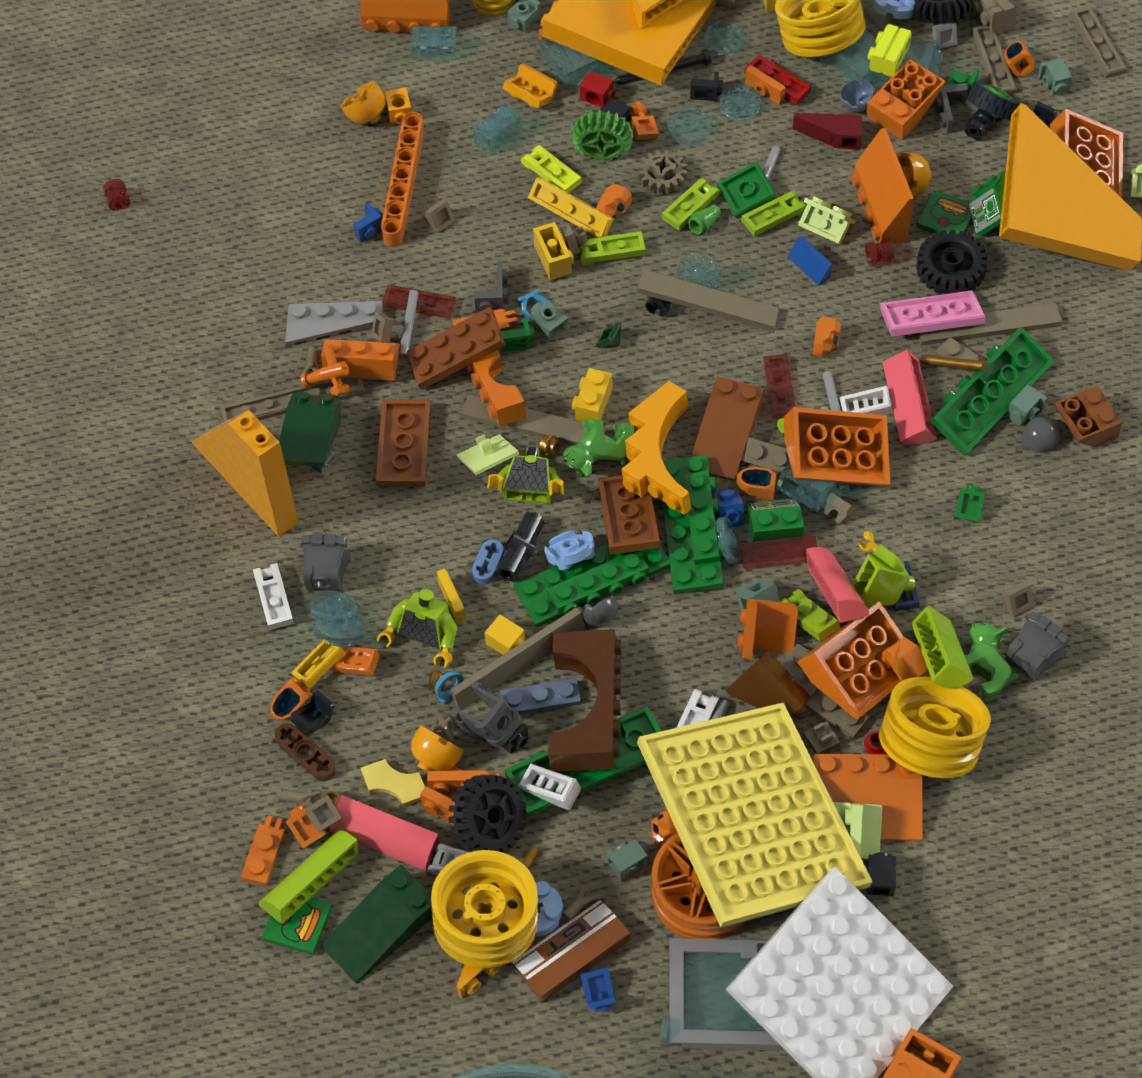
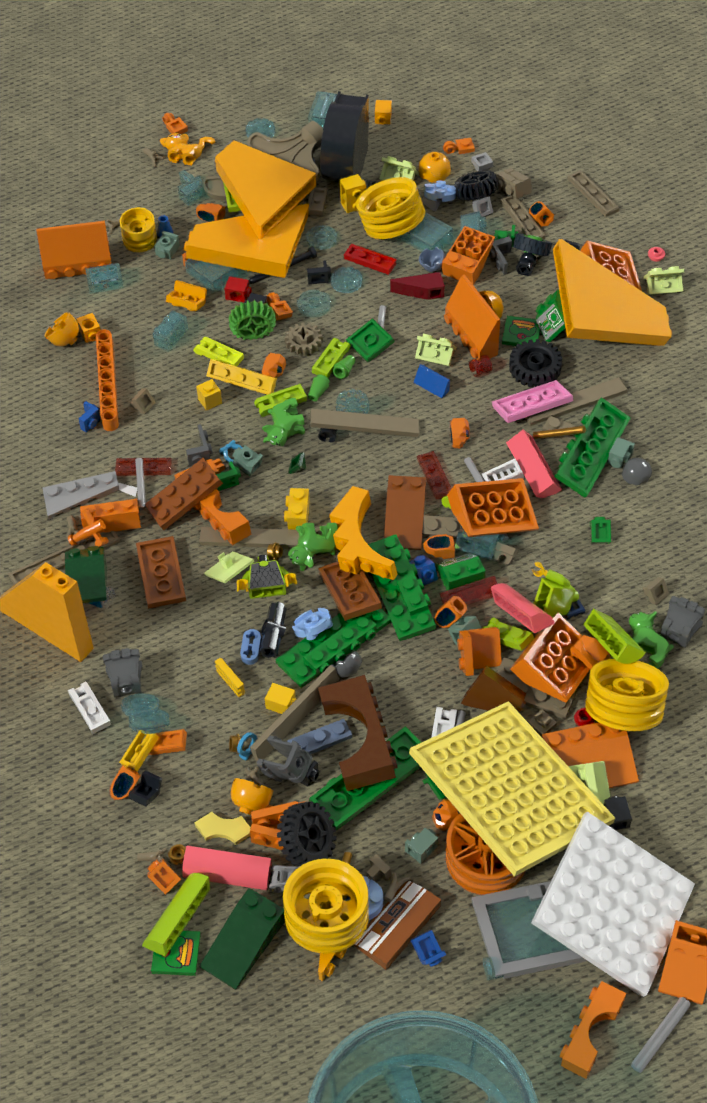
camera: 15 degrees left, 5 degrees down
(263, 852) = (134, 905): orange hinge -> none
(301, 742) = (143, 812): reddish brown beam -> none
(322, 813) = (176, 862): dark tan tile -> none
(383, 327) = (121, 490): dark tan tile -> none
(424, 621) = (215, 700): torso -> none
(522, 222) = (209, 394): none -> yellow brick
(553, 251) = (237, 410): yellow brick -> none
(565, 793) = (348, 808): white slope -> none
(565, 877) = (378, 869): none -> dark tan tile
(573, 237) = (250, 397): dark tan tile -> none
(607, 280) = (285, 420): none -> bright green animal
(665, 238) = (318, 387): none -> bright green cone
(728, 540) = (430, 591): clear light blue wheel -> none
(746, 571) = (450, 612): none -> orange rock
(765, 85) = (362, 264): orange plate -> none
(773, 213) = (394, 353): lime plate -> none
(890, 50) = (448, 222): neon yellow brick -> none
(1055, 76) = (570, 221): sand green brick -> none
(1090, 417) = (669, 451): dark orange slope -> none

